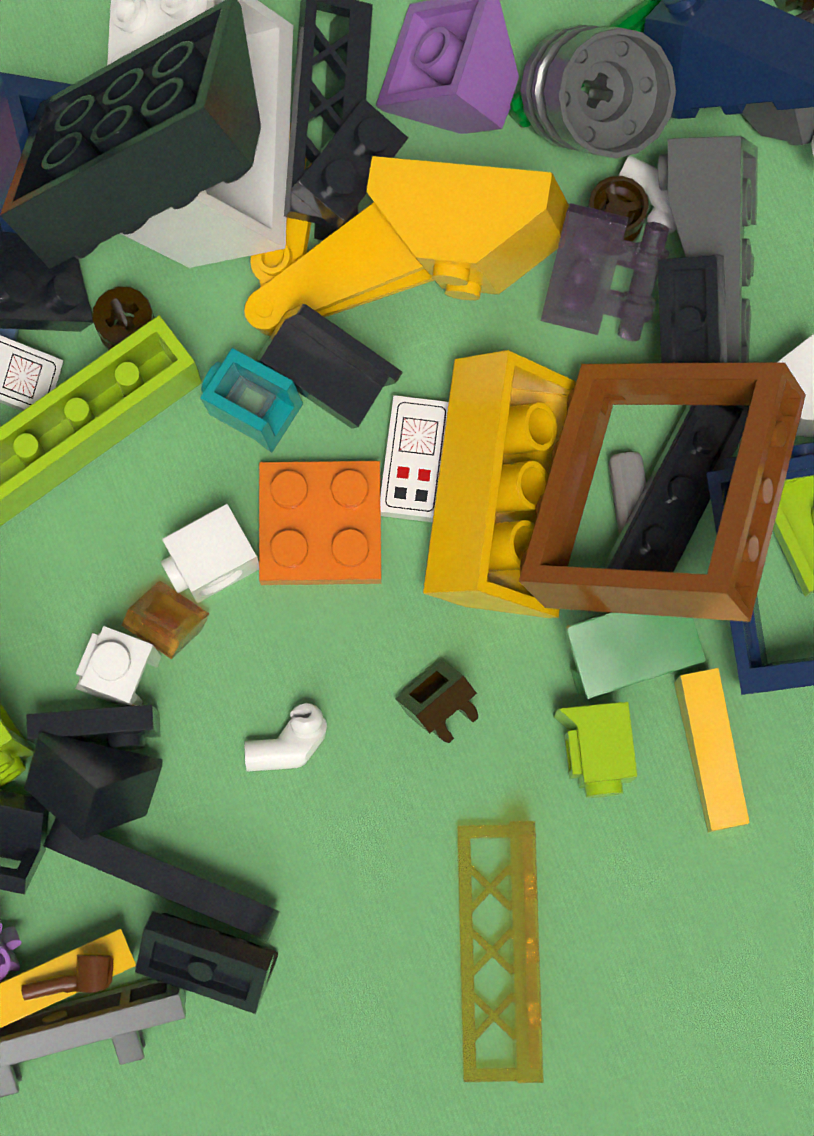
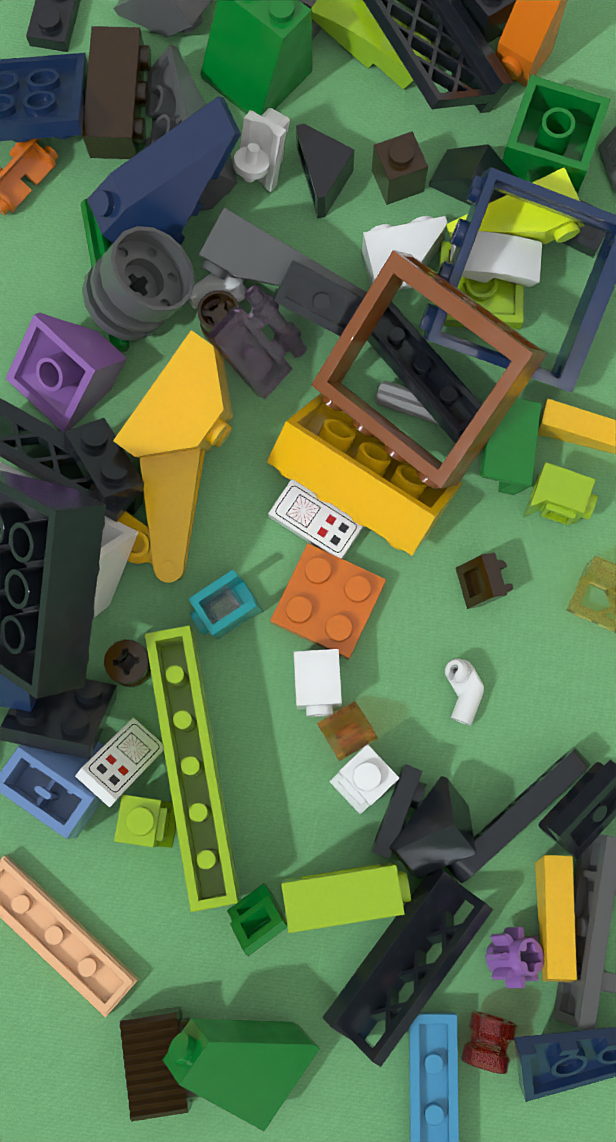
camera: 60 degrees left, 0 degrees up
(92, 975) = (572, 889): reddish brown hand -> none
(327, 364) = (228, 544): black panel -> none

